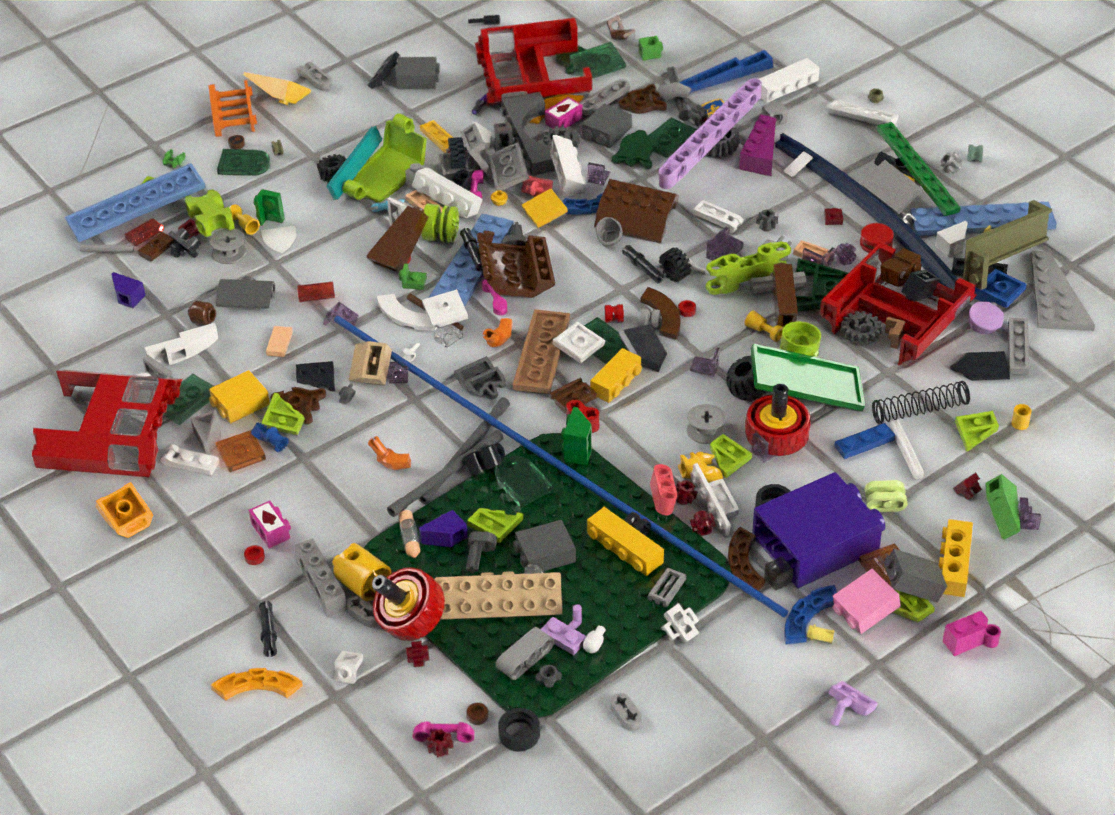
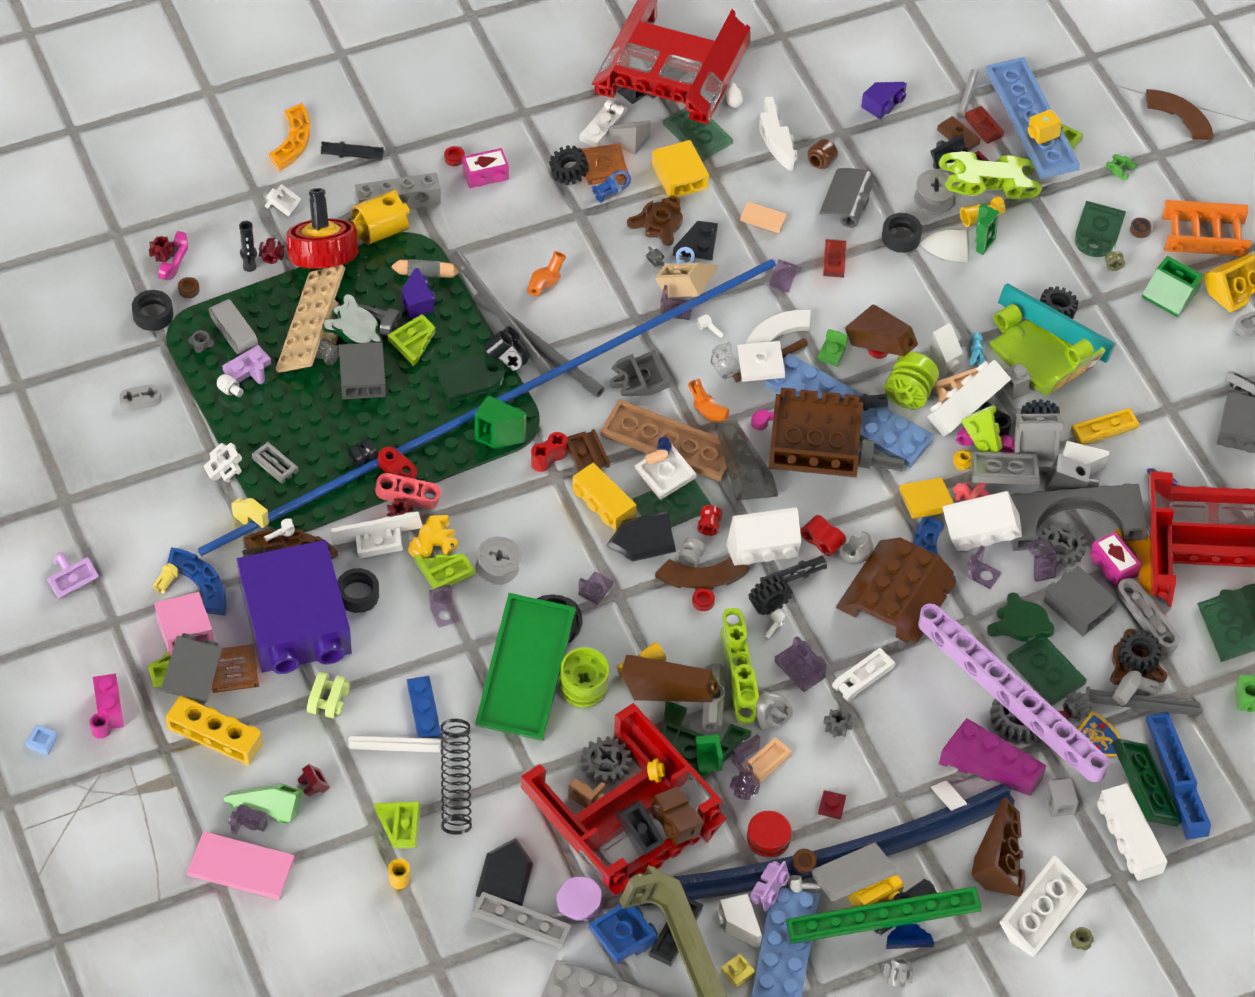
camera: 100 degrees right, 10 degrees up
(100, 138) = (1189, 113): none -> reddish brown tile
(125, 511) = (541, 62): light orange slope -> none
(155, 368) = (740, 110): light grey tile -> none
(156, 182) = (1044, 126): none -> yellow brick
(253, 476) = (569, 174): none -> black tyre
(275, 250) = (901, 244): none -> black tyre
(282, 416) = (636, 199): lime wing -> none
(298, 114) = (1173, 286): none -> slope
(340, 376) = (688, 251): none -> light blue bush
(432, 661) = (248, 260): none -> black pin
(478, 176) = (984, 430): none -> lime wing
(497, 559) = (353, 323): none -> tile
(559, 298) = (745, 466): none -> clear smoke wedge
(568, 339) = (661, 453): none -> arm
(583, 140) = (1043, 560): none -> clear purple bracket
(602, 253) = (823, 535): none -> red axle
(625, 275) = (764, 536): none -> white slope
(625, 541) = (334, 440): yellow brick -> none
(640, 500) = (397, 464): none -> red plate
(642, 91) = (1140, 641): none -> black tyre
(703, 523) = (349, 514): dark red gear -> none
(730, 592) = (250, 510): none -> light yellow tile
(735, 558) = (286, 530): none -> white hand
(736, 81) = (1147, 782): none -> dark green tile
(780, 421) = (466, 622): red wheel -> none
(832, 267) = (708, 753): none -> green panel
(841, 133) = (999, 854): none -> reddish brown wedge
(867, 286) = (655, 770): none -> yellow plate
(895, 211) = (804, 861): none -> reddish brown tile
(931, 222) = (776, 877): none -> lavender hinge
(1022, 675) = (42, 739): none -> light blue tile
(1065, 514) = (241, 865): none -> bright pink tile

